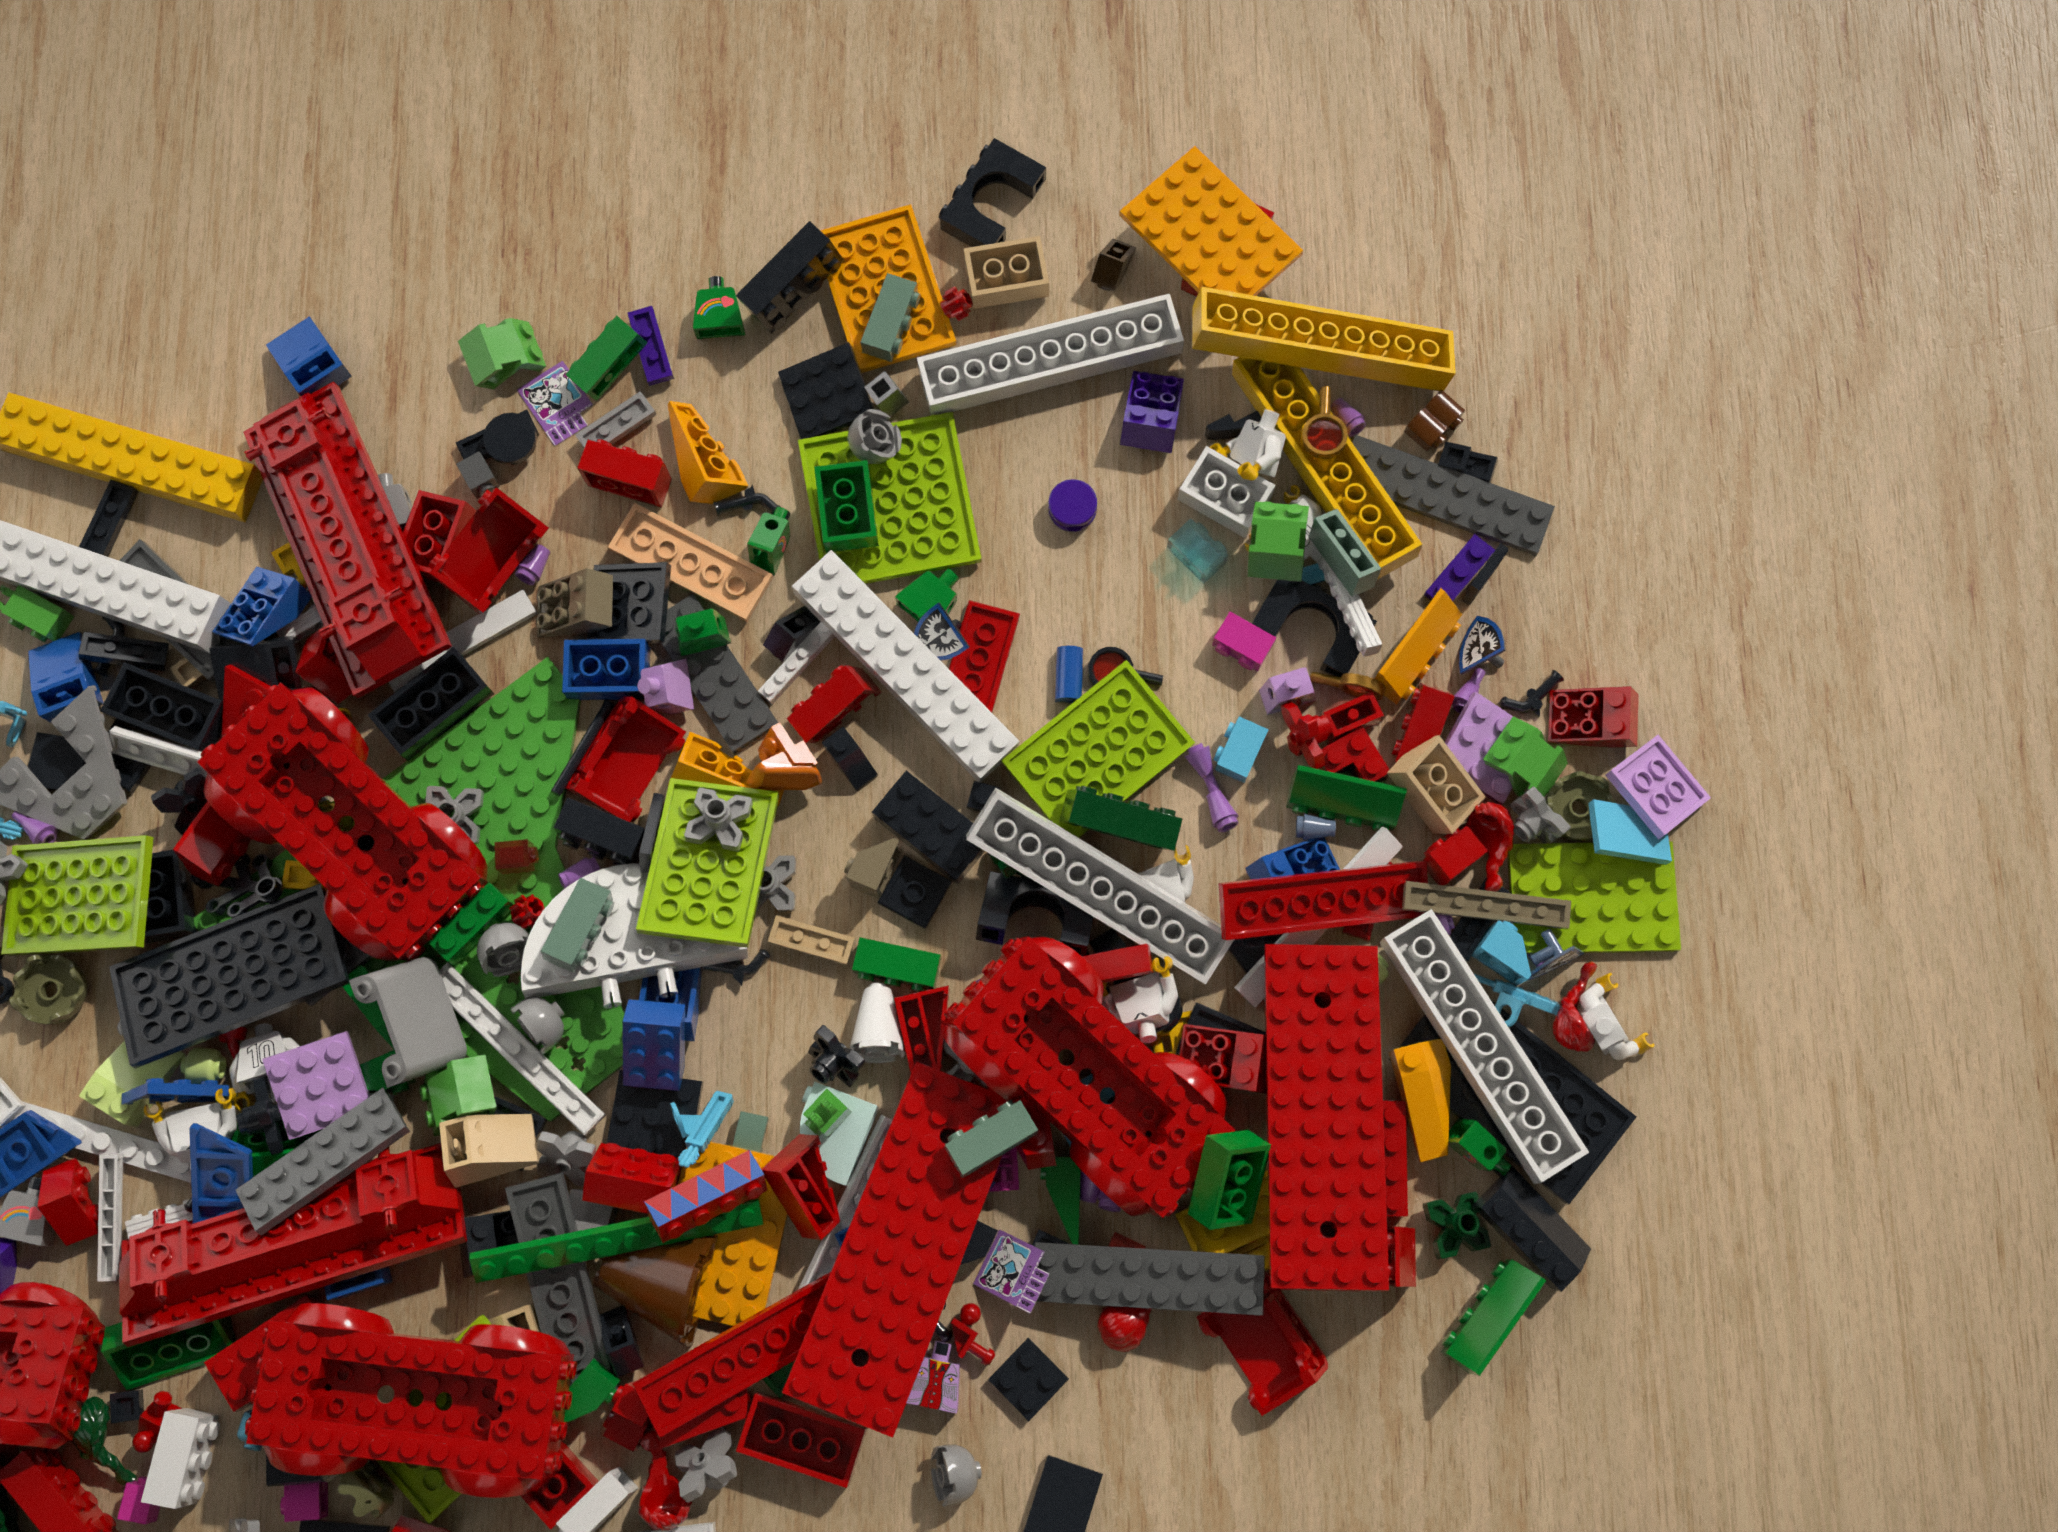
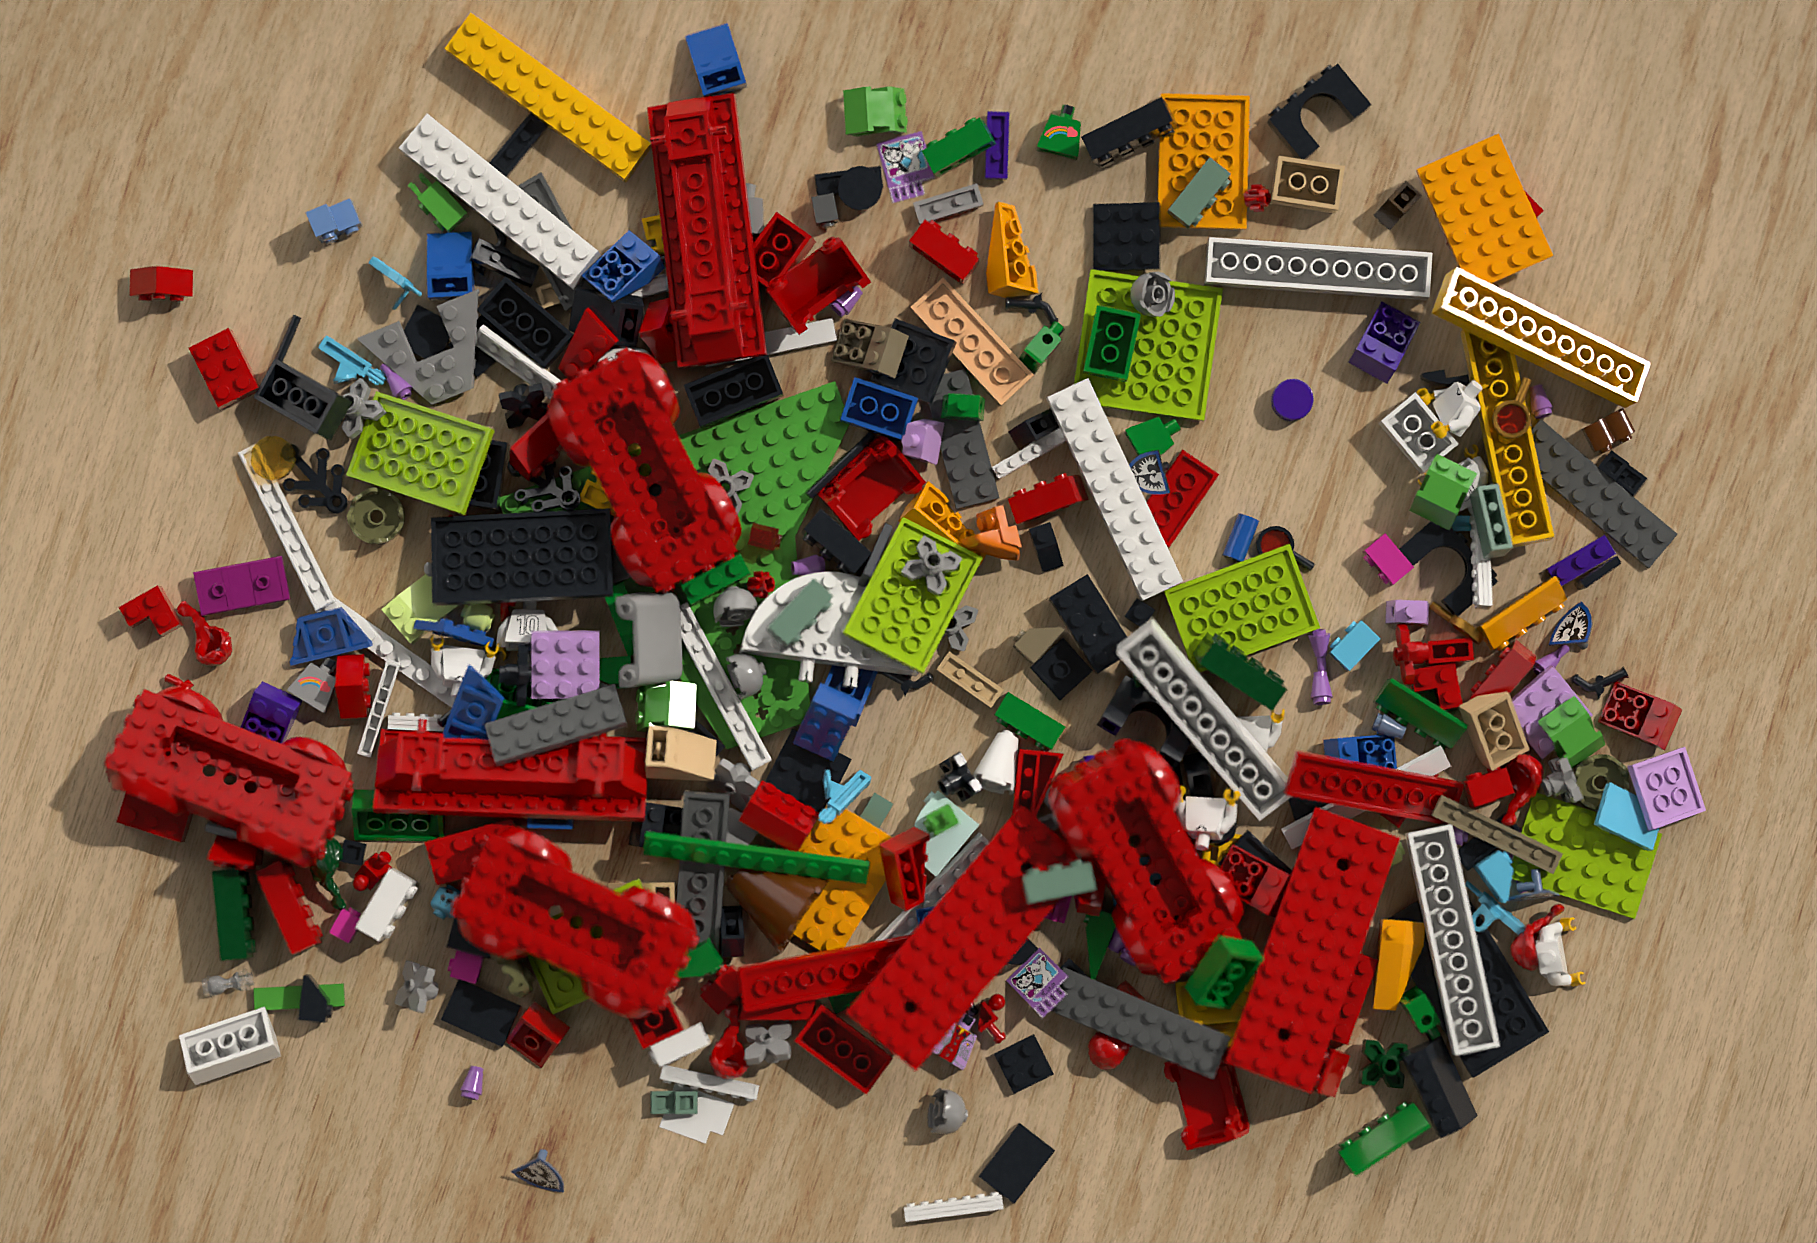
camera: 15 degrees right, 10 degrees up
(706, 1196) = (833, 850): red brick -> none
(886, 394) = (1174, 256): flat silver brick -> none
(1122, 963) = (1200, 783): red tile -> none
(1198, 550) = (1379, 472): clear light blue brick -> none

